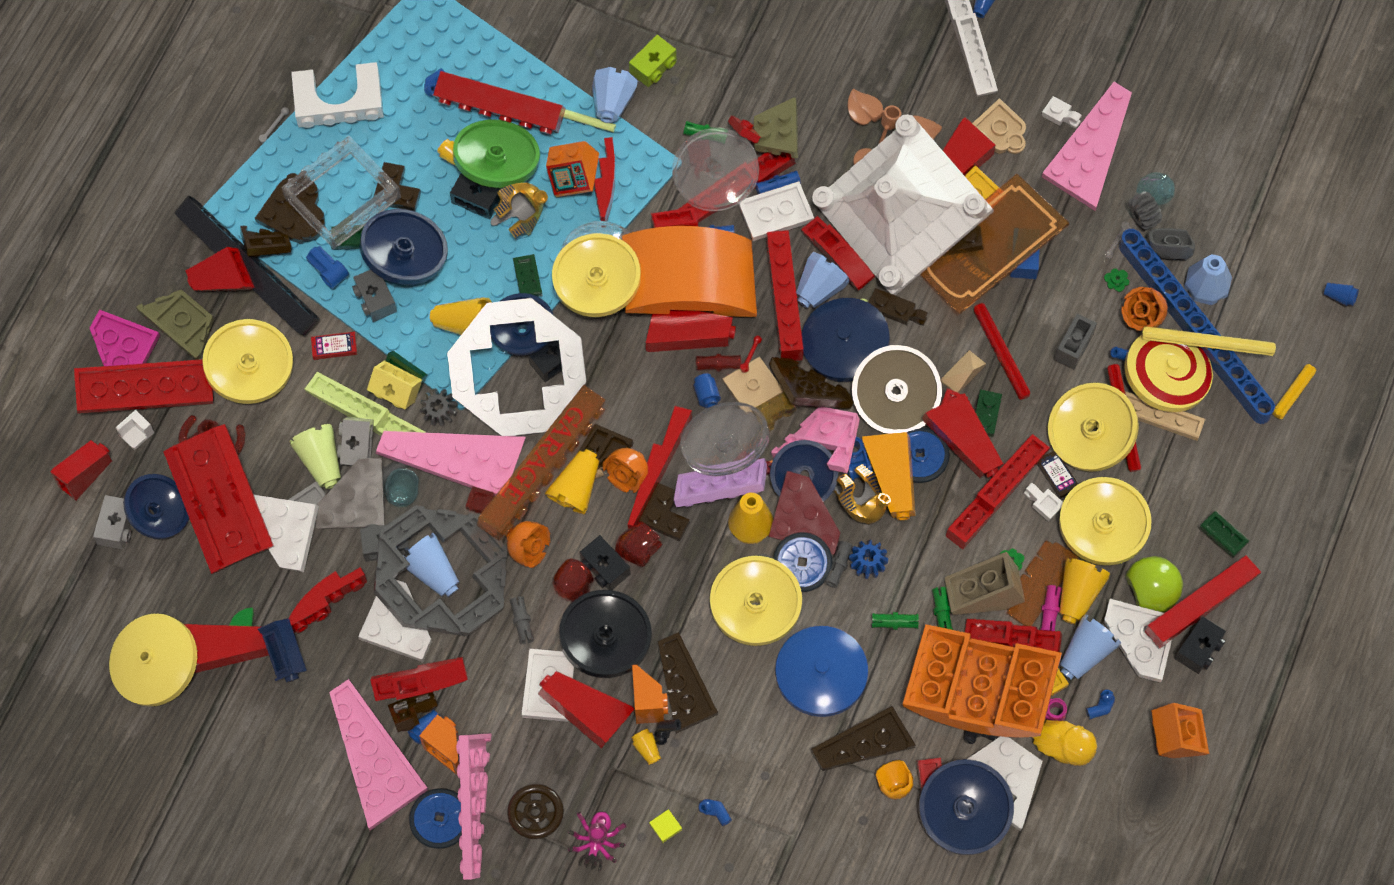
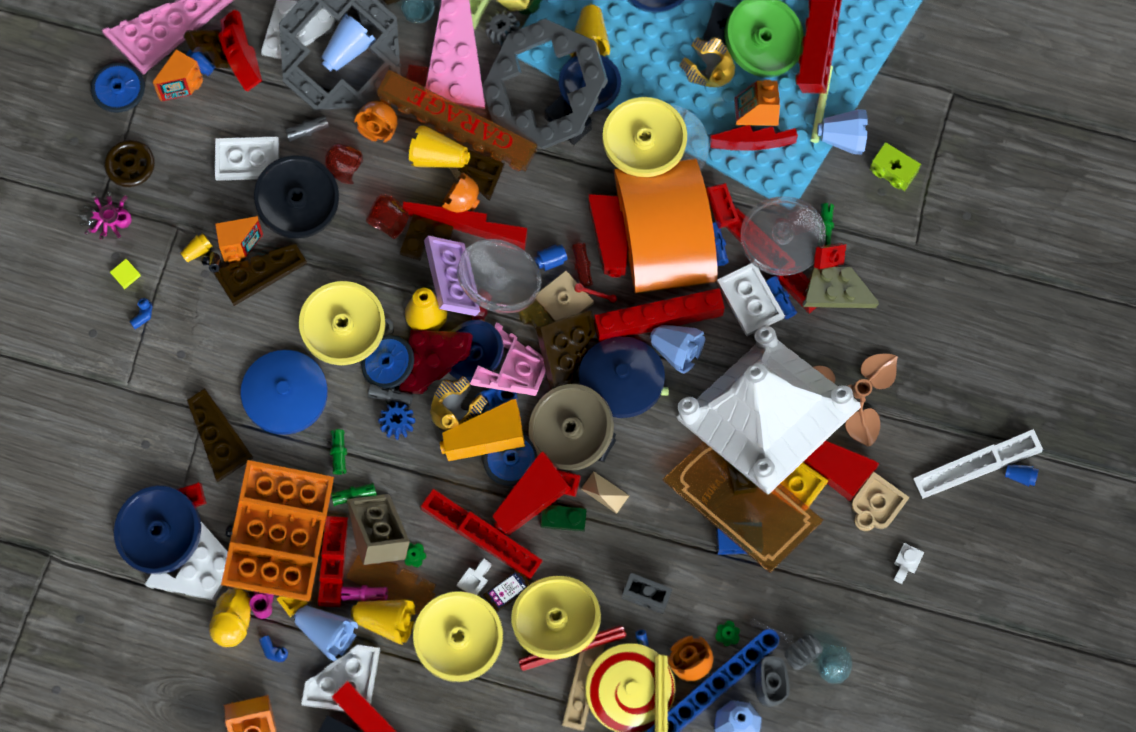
camera: 80 degrees right, 5 degrees up
(473, 799) = (136, 105): bright pink wing -> none
(527, 275) = (643, 84): dark green plate -> none
(585, 707) = (223, 188): red slope -> none
(601, 552) = (363, 199): black brick -> none
(838, 252) = (711, 358): red slope -> none
(895, 779) = (180, 465): light orange hair -> none
(897, 308) = (663, 421): dark brown plate -> none
(1002, 351) = (631, 526): red axle -> none
(1086, 156) = (863, 593): bright pink wing -> none
(1155, 583) = (402, 692): lime cylinder -> none

